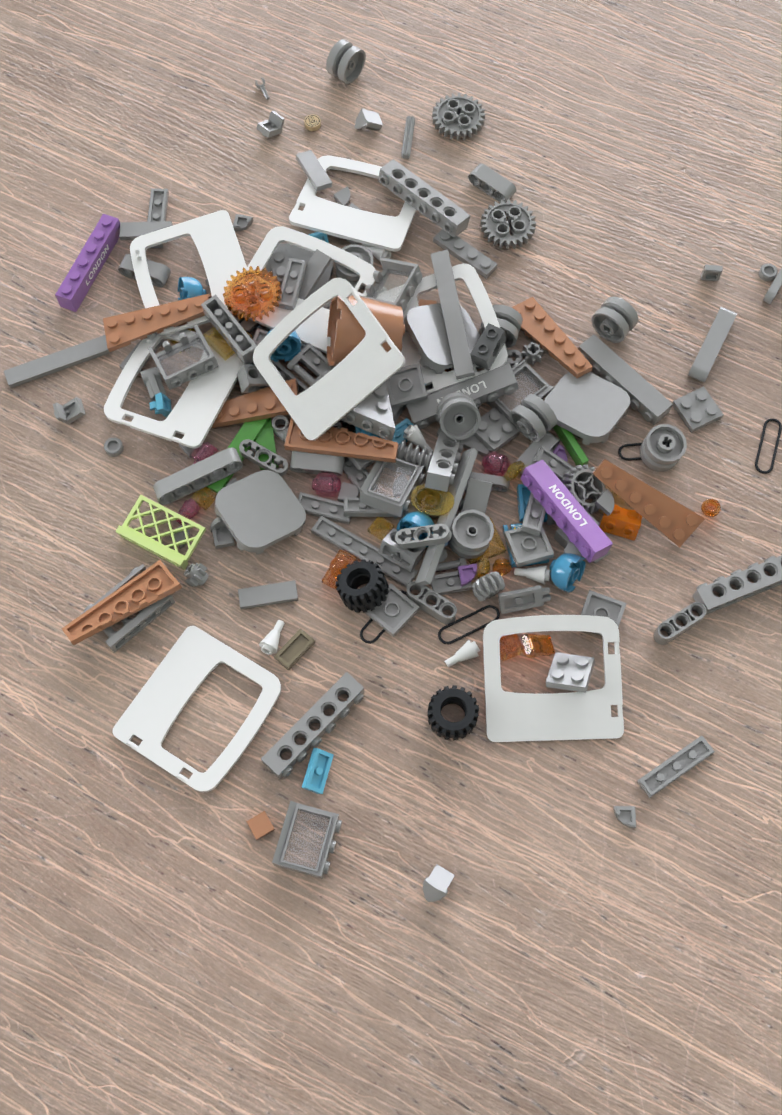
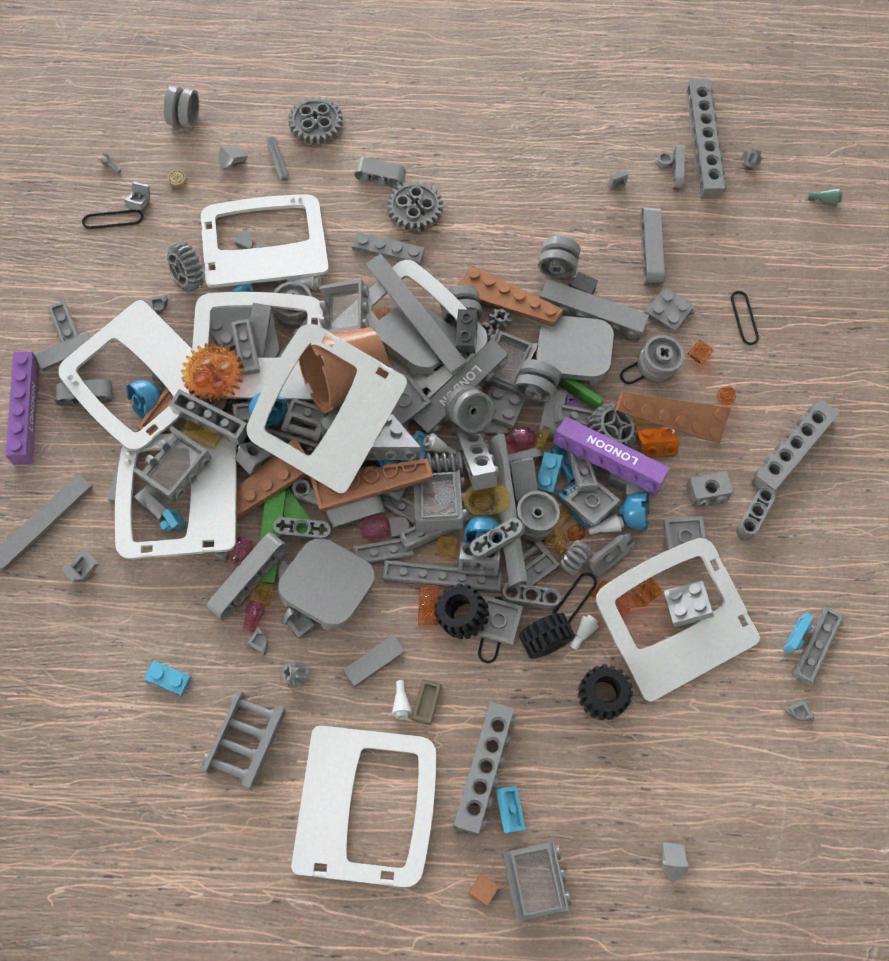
camera: 30 degrees left, 0 degrees up
(93, 531) = (167, 678): none -> medium azure plate
(113, 447) = (144, 584): light grey tile -> none
(132, 597) = (246, 728): nougat wing -> none
(139, 324) = (110, 450): nougat wing -> none
(150, 543) = (237, 665): yellowish green fence -> none
(241, 142) = (112, 225): none -> black piece
(278, 197) = (185, 266): none -> light grey gear
(314, 170) = (205, 225): tile -> none
(424, 198) = (325, 211): light grey brick -> none
(425, 639) = (546, 635): none -> black tyre
(467, 573) = (549, 554): medium lavender tile -> none
(505, 504) = (549, 472): none -> medium azure plate
(605, 502) = (639, 431): light grey tile -> none
(627, 352) = (584, 283): none -> dark grey brick
(655, 750) = (802, 627): none -> medium azure plate
(657, 579) = (717, 482): none -> light grey brick
(706, 458) = (700, 352): none -> clear orange plate

